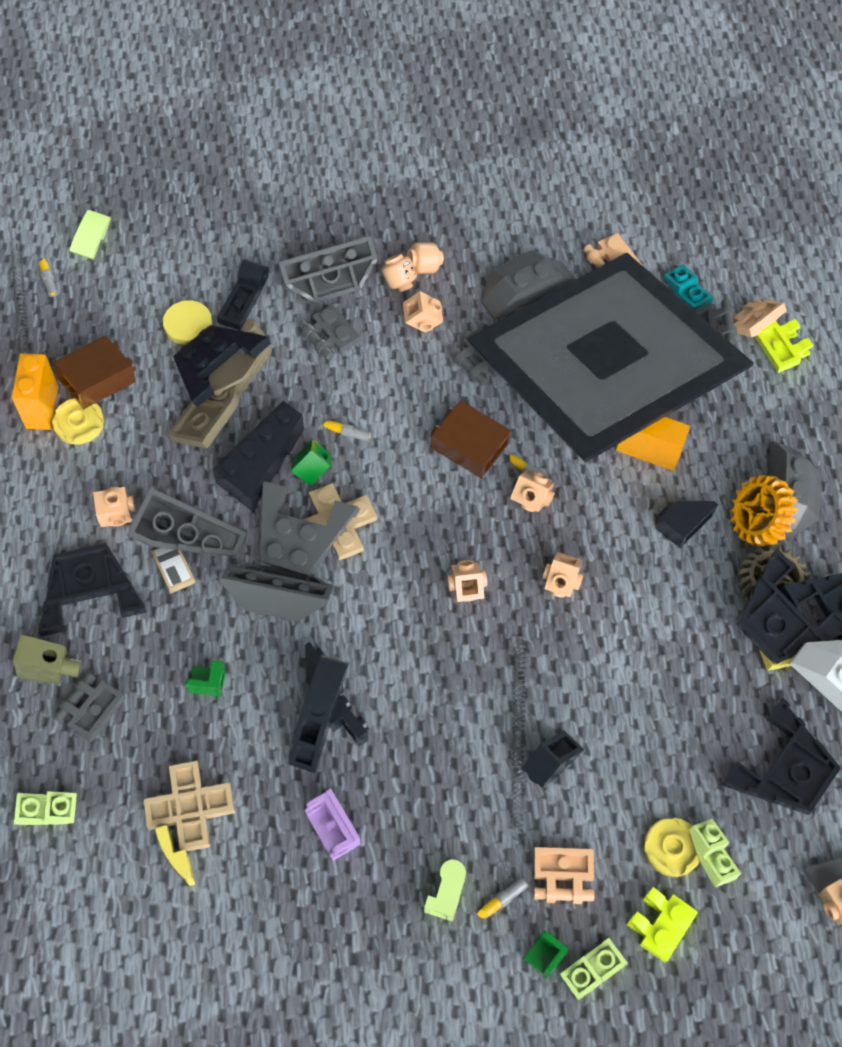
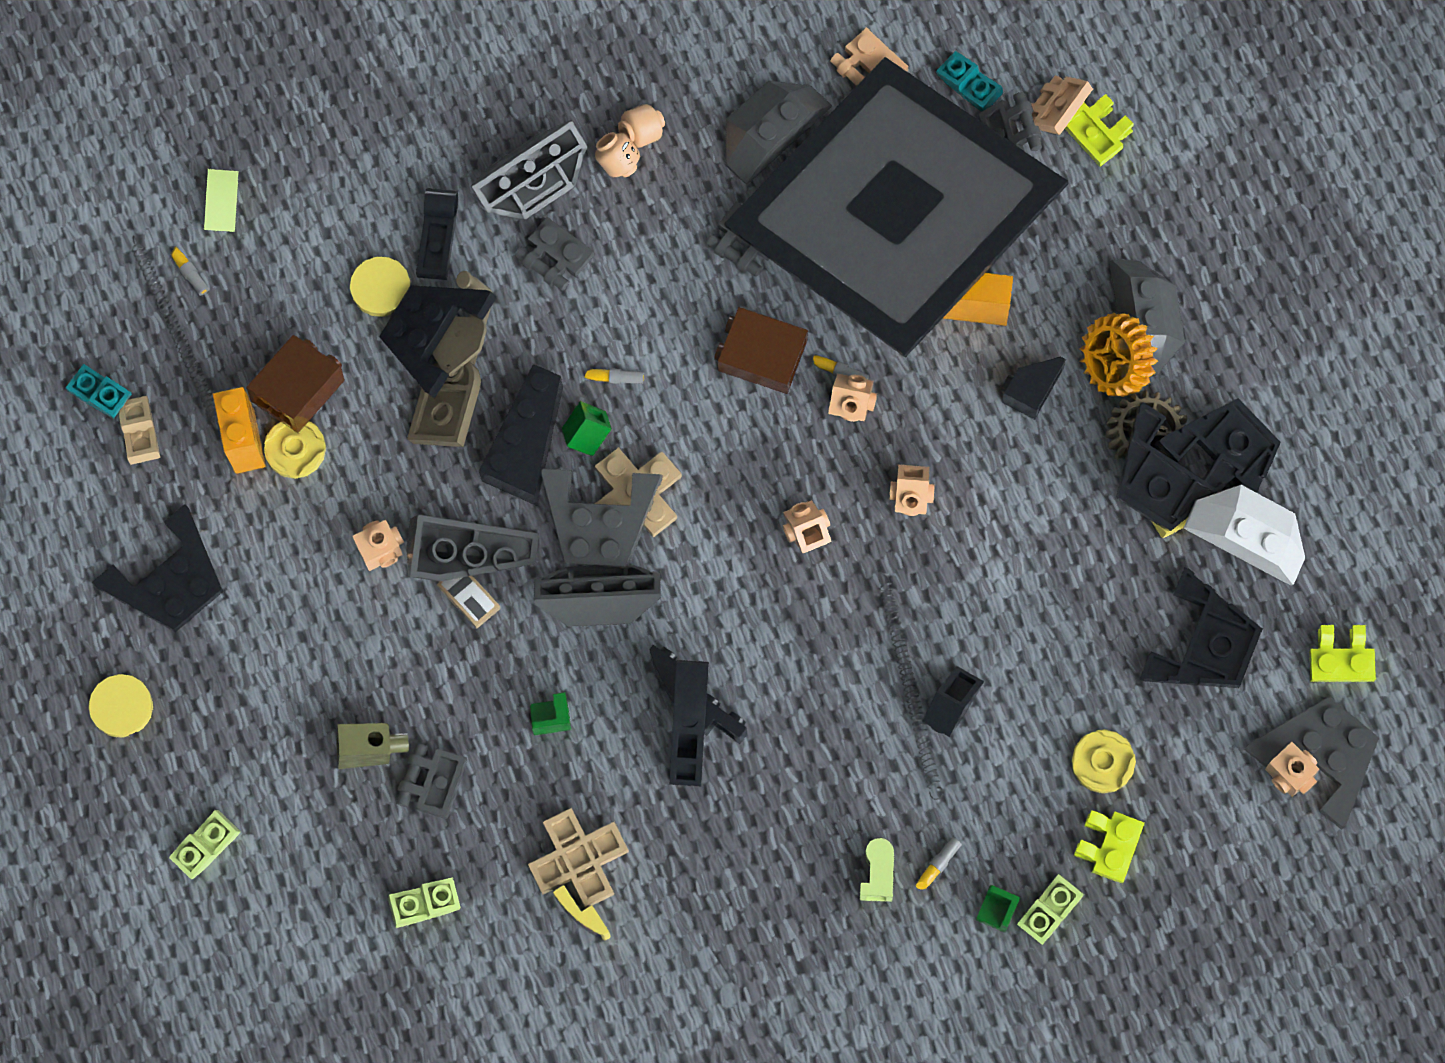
camera: 10 degrees left, 10 degrees up
(85, 576) = (374, 634): black wing -> none
(332, 824) = (737, 836): lavender hinge -> none
(422, 312) = (661, 202): light nougat brick -> none
(563, 864) = (995, 811): light nougat plate -> none
(710, 846) = (1142, 752): yellowish green slope -> none

